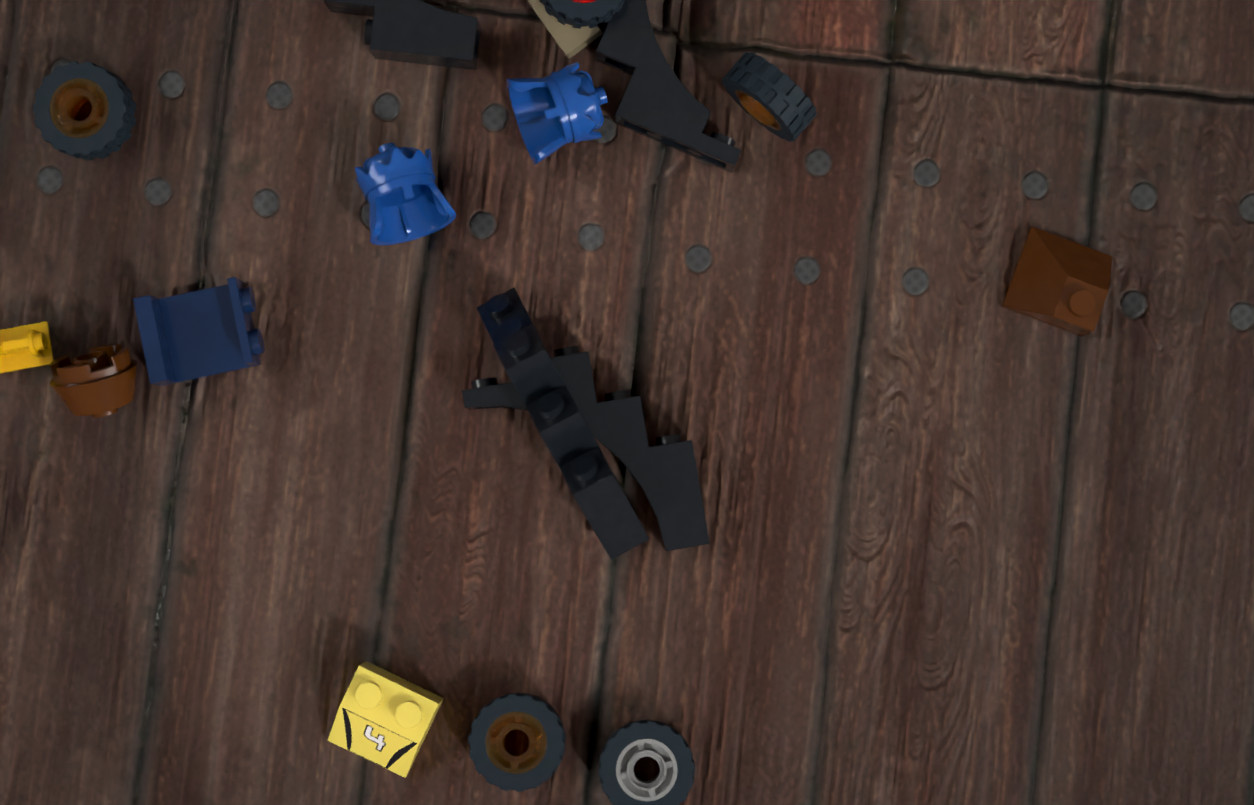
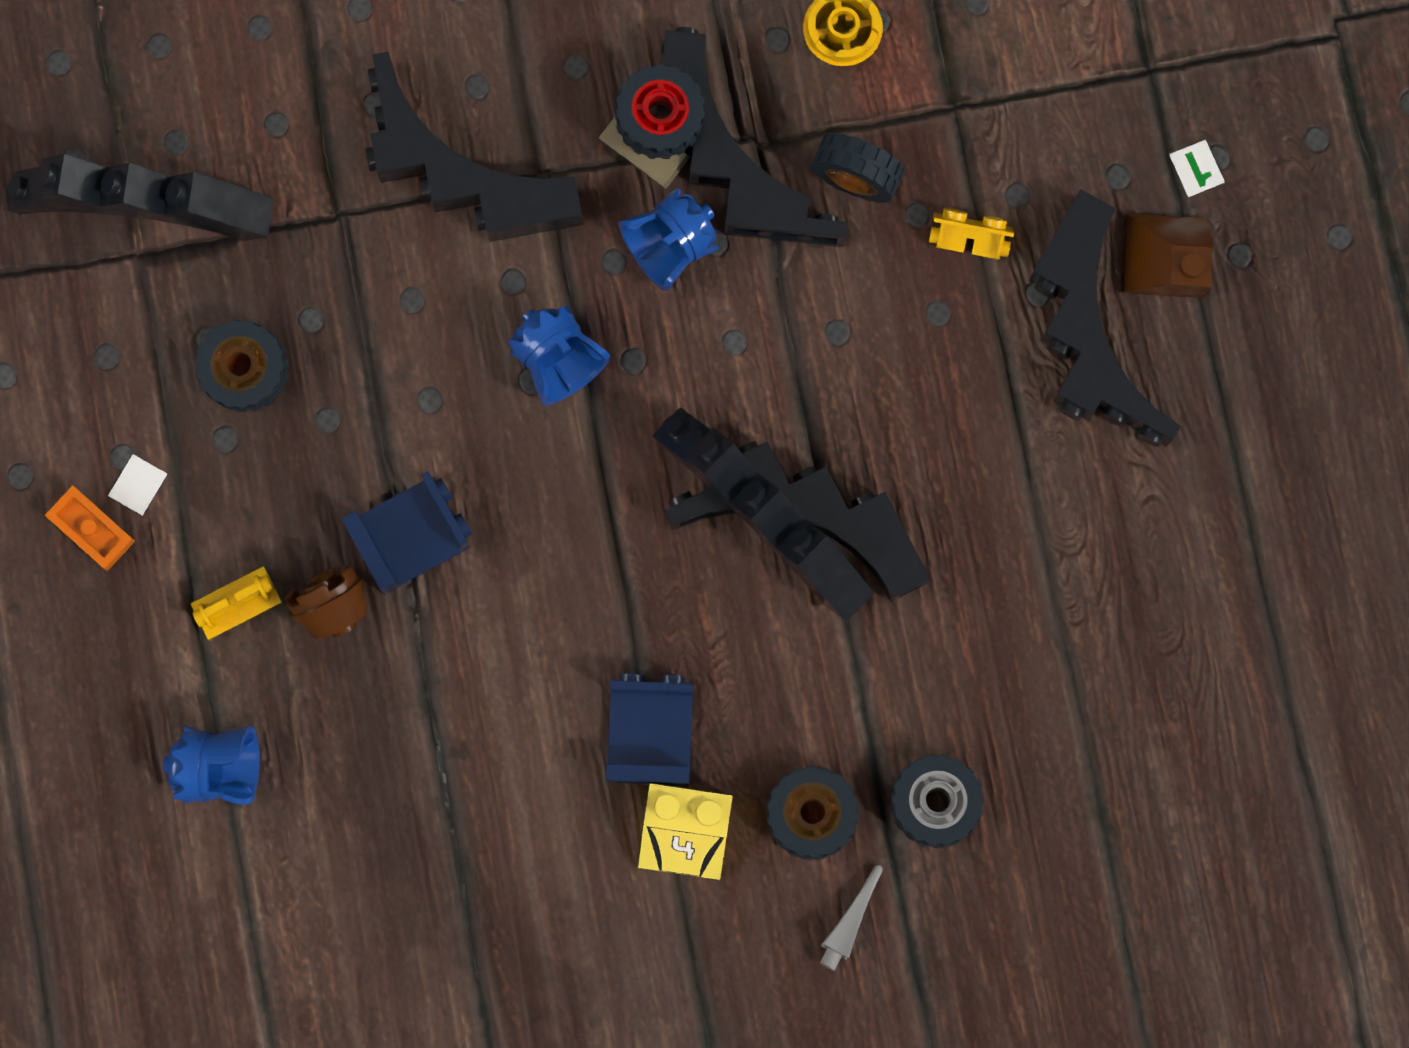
camera: 20 degrees left, 5 degrees down
(380, 609) = (649, 730): none -> dark blue panel
(881, 204) = (987, 234): none -> yellow hinge
(941, 332) = (1076, 330): none -> black arch
(1119, 201) = (1197, 168): none -> white sticker

